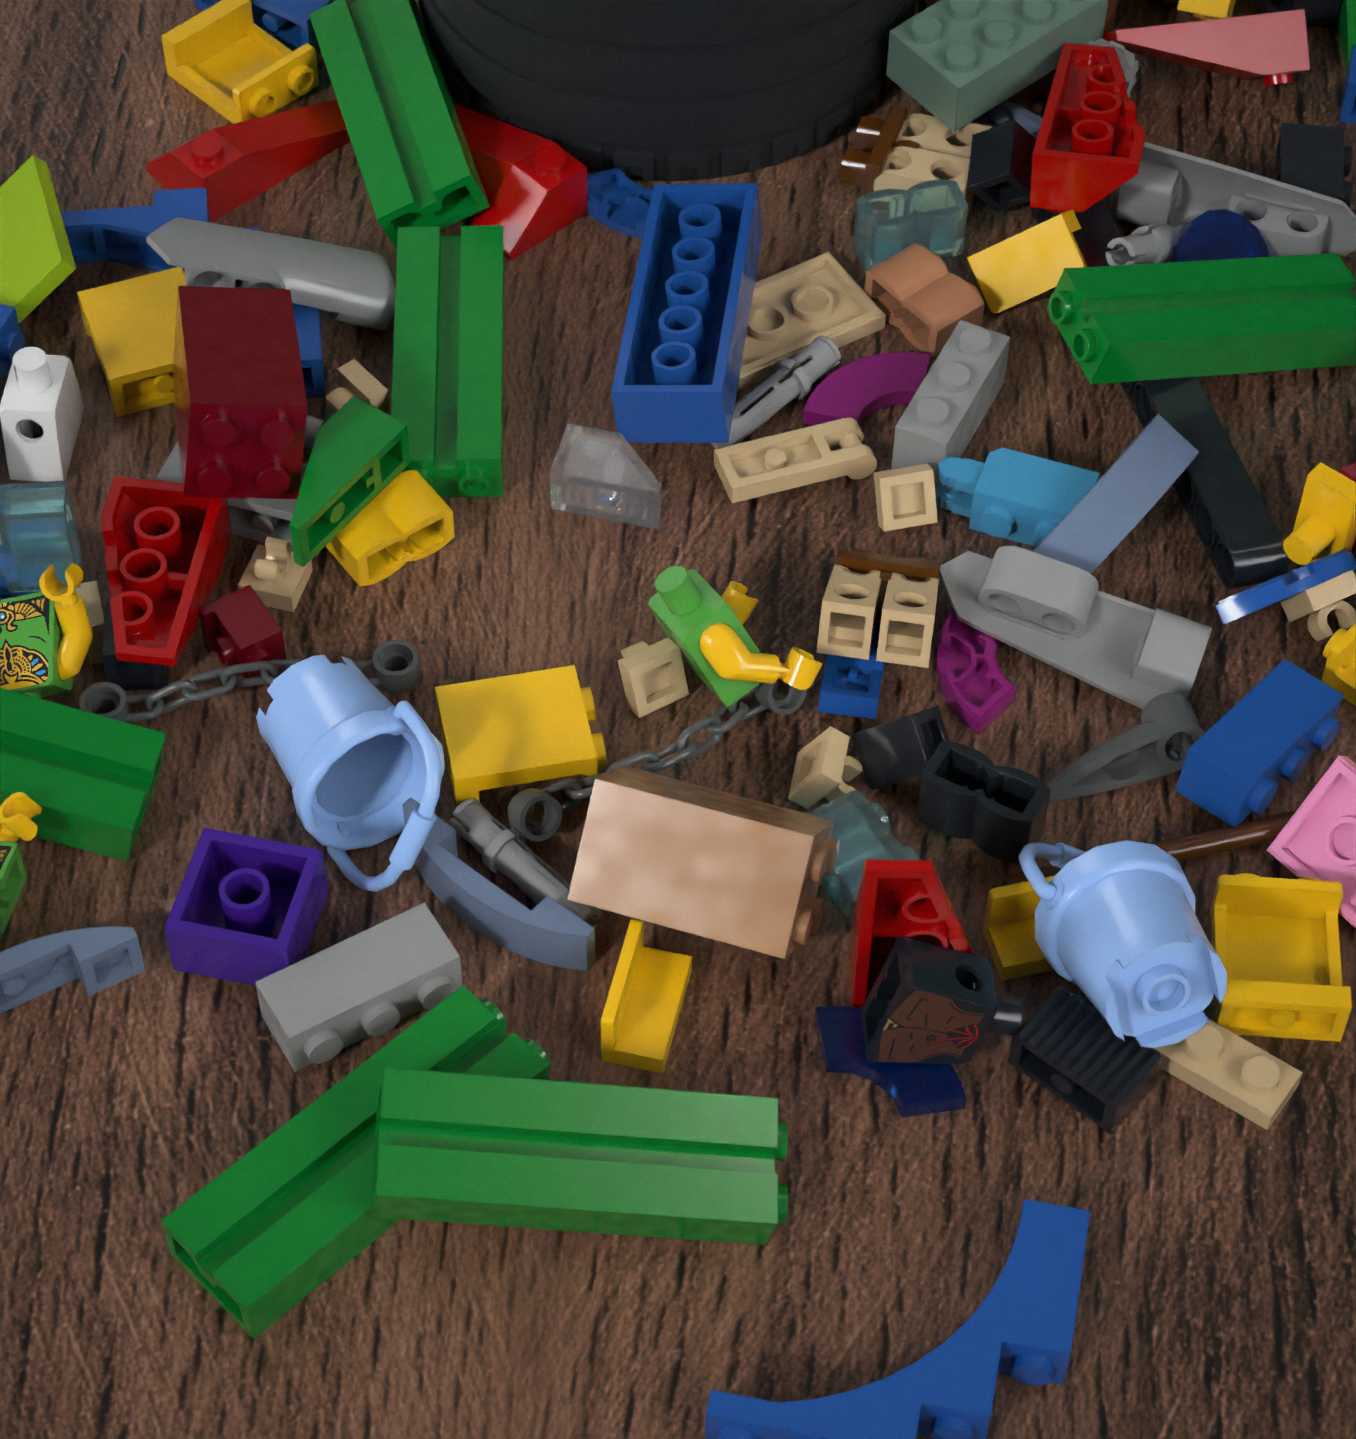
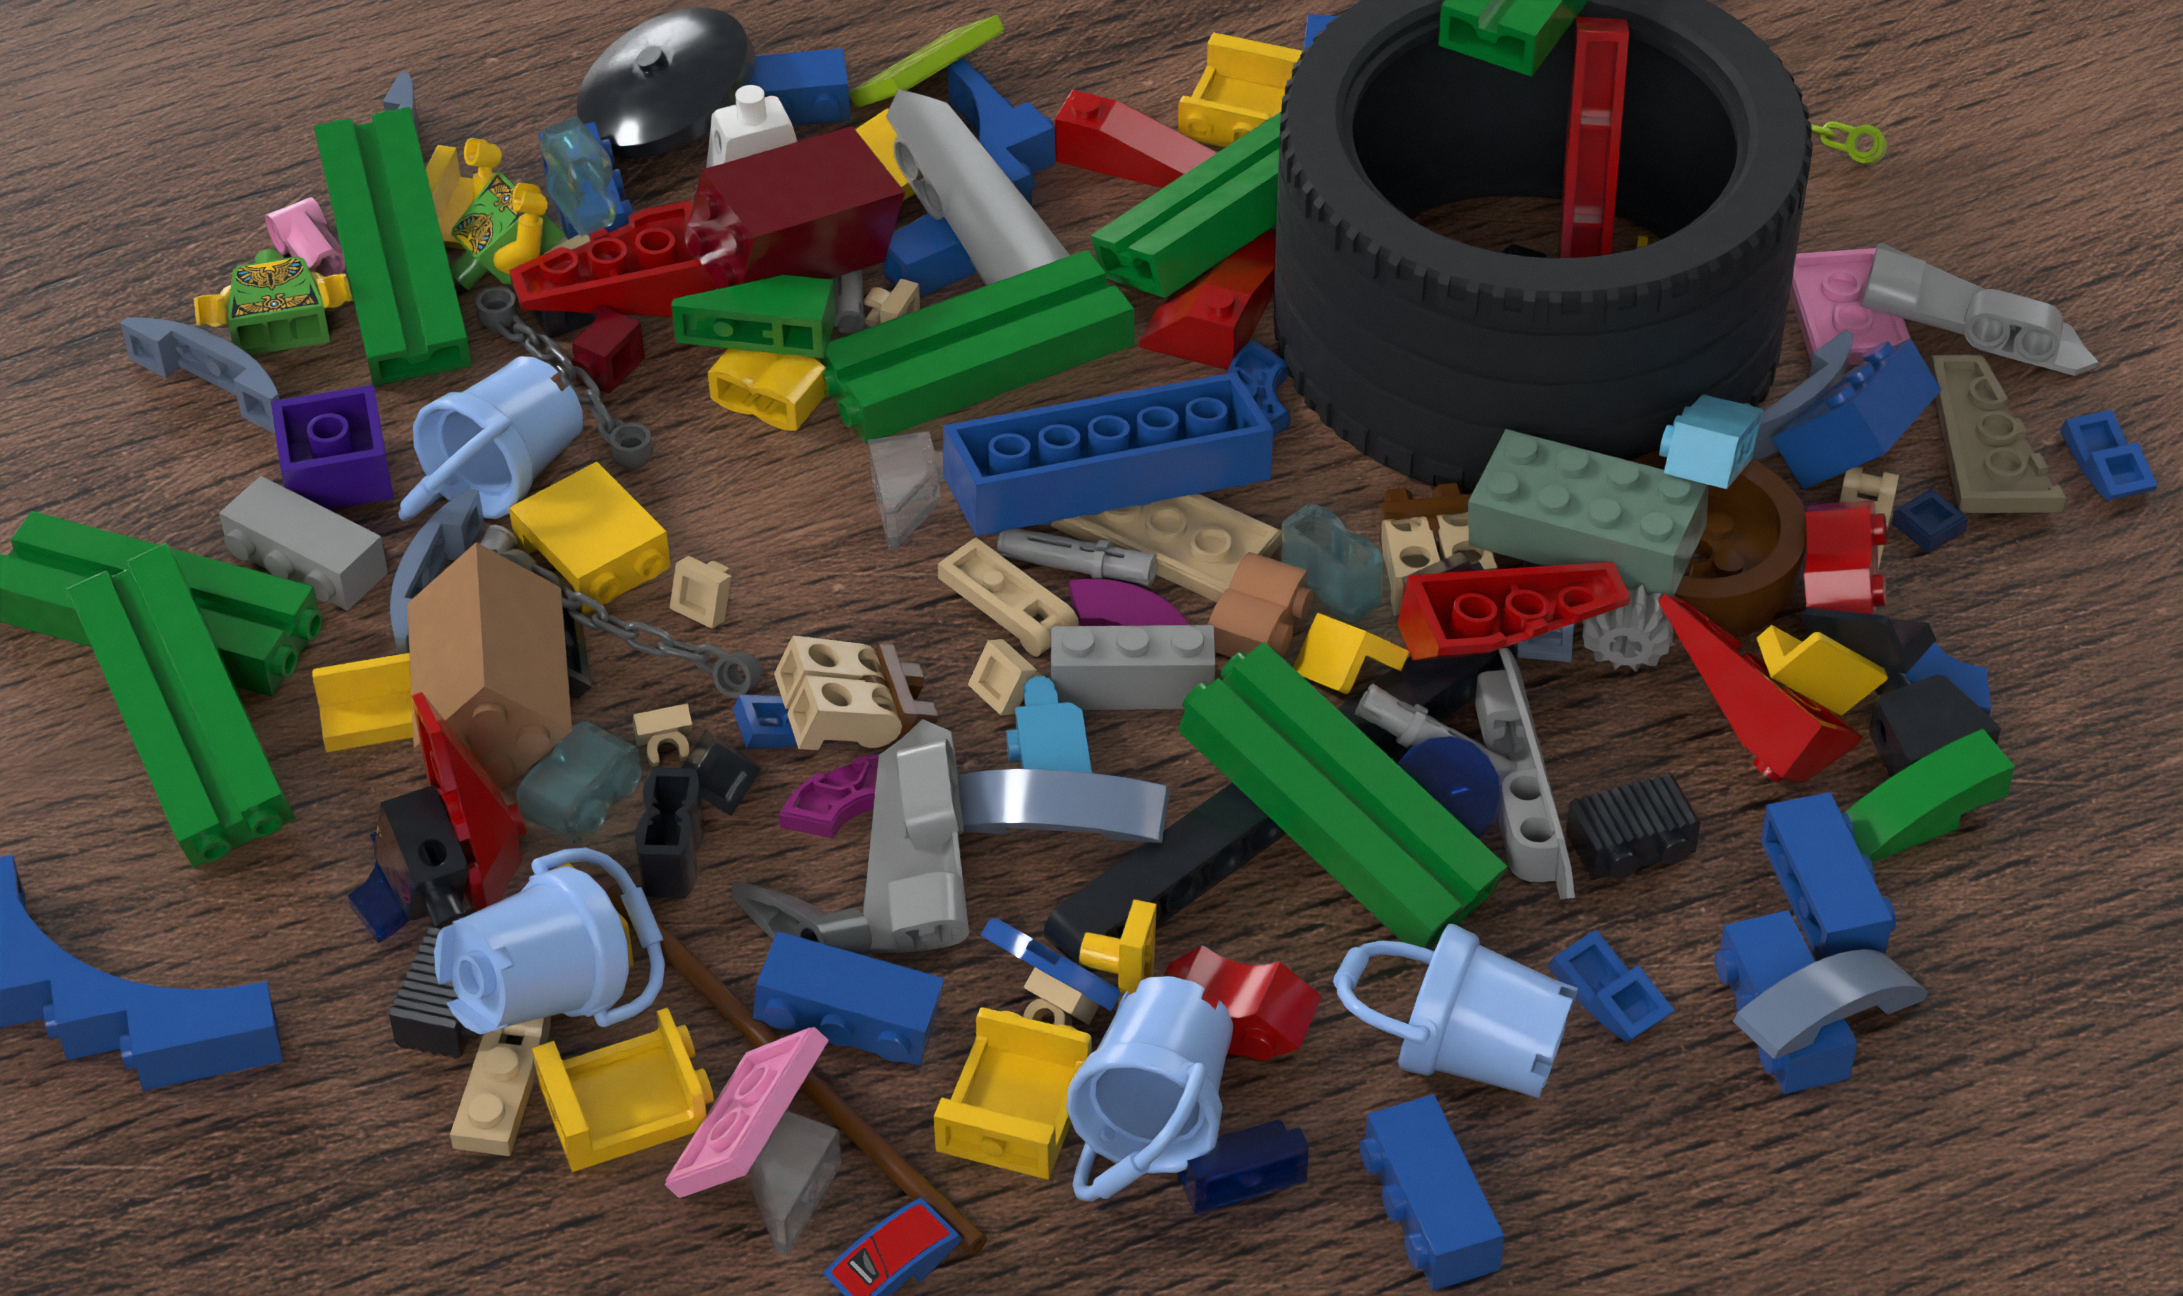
camera: 65 degrees right, 5 degrees down
(276, 575) = (684, 357): tan tile -> none
(714, 637) = (745, 593): torso -> none

